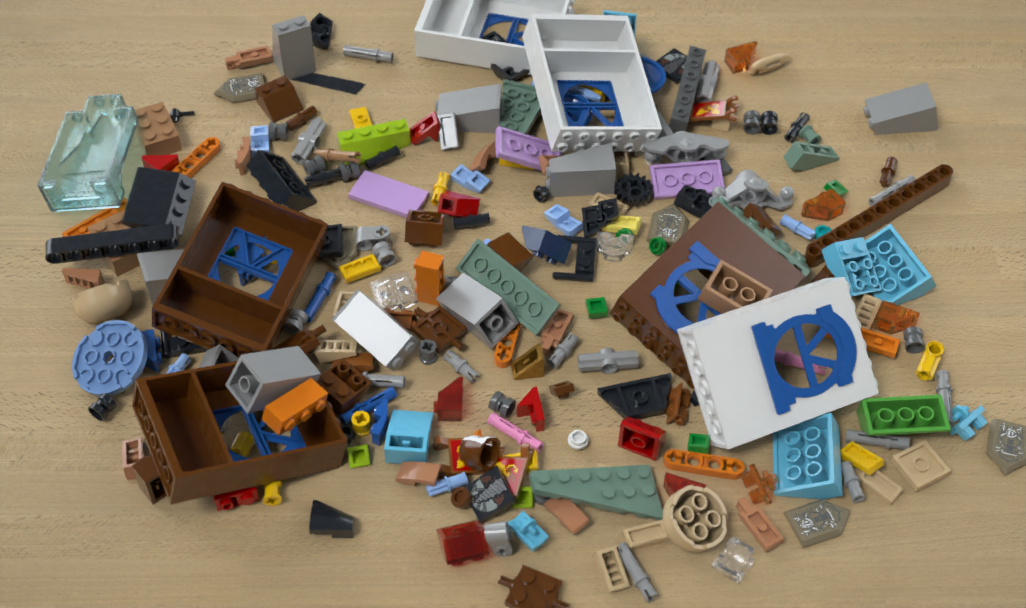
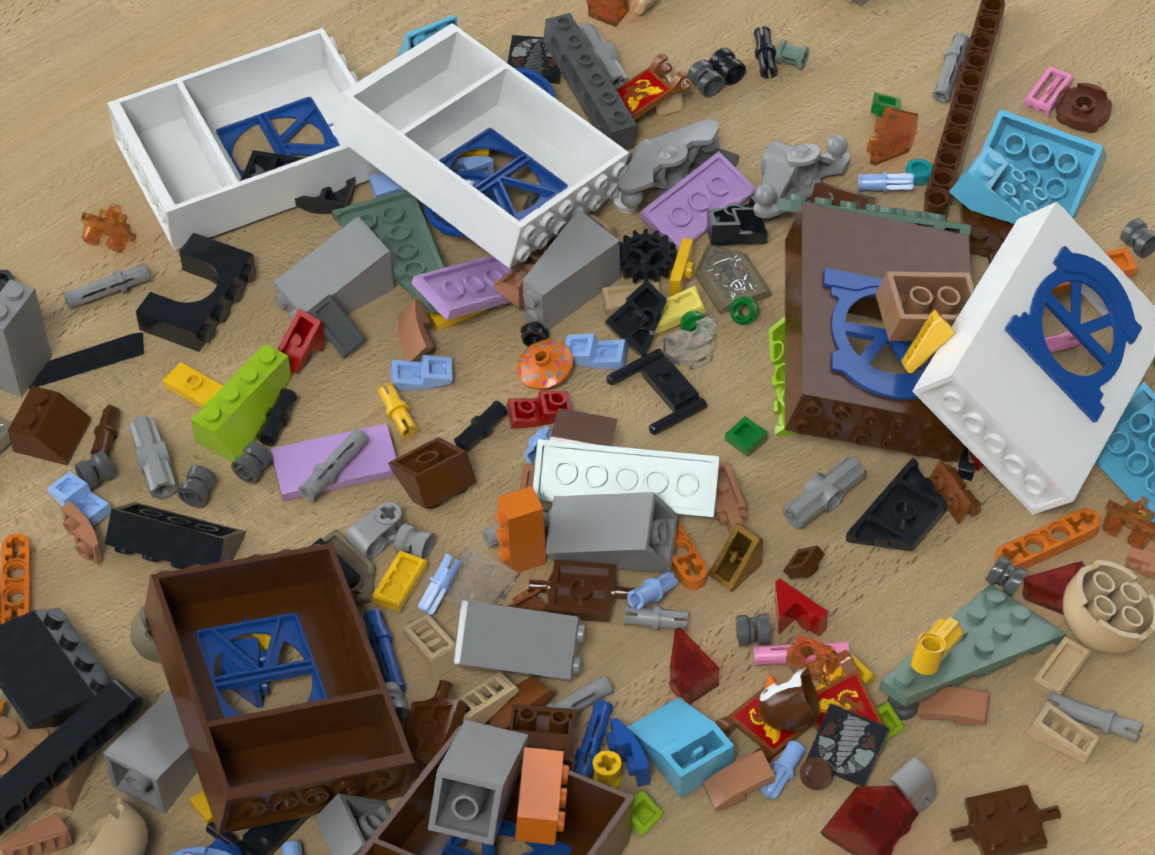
camera: 35 degrees left, 0 degrees up
(323, 177) = (224, 494): black pin -> none
(332, 155) = (210, 455): medium nougat pin -> none
(373, 280) = (439, 585): none -> light blue axle
(381, 194) = (312, 486): none -> light grey pin
(391, 92) = (195, 322): none -> black arch
(397, 27) = (109, 223): none -> clear orange hips
(428, 355) = (602, 631): dark grey bush -> none
(458, 204) = (445, 415): red slope -> none
(471, 351) = (652, 590): none -> light blue axle
(500, 227) = (537, 411): none -> red slope
(510, 437) = (823, 665): none -> clear orange brick
(528, 531) = (936, 755): medium azure hips -> none
(532, 211) = (550, 371): none -> orange dish
(546, 245) = (617, 394): dark blue slope -> none
(563, 350) = (758, 514): light grey pin -> none
(574, 472) = (935, 646): none -> yellow piece
(577, 439) = (880, 611): white plate -> none
(641, 438) = (955, 557): red slope -> none
(646, 205) = (682, 268): none -> yellow plate
(659, 465) = (999, 573): none -> dark grey wheel
(698, 443) = (1021, 520): green plate -> none
(718, 307) = (928, 341): none -> yellow slope
(807, 156) = (816, 81): sand green slope -> none
(888, 171) = (923, 44): reddish brown axle -> none
(894, 318) = (1100, 220): clear orange slope -> none
(940, 236) = (1041, 104): none -> bright pink tile
(945, 261) = (1086, 119): none -> copper plate

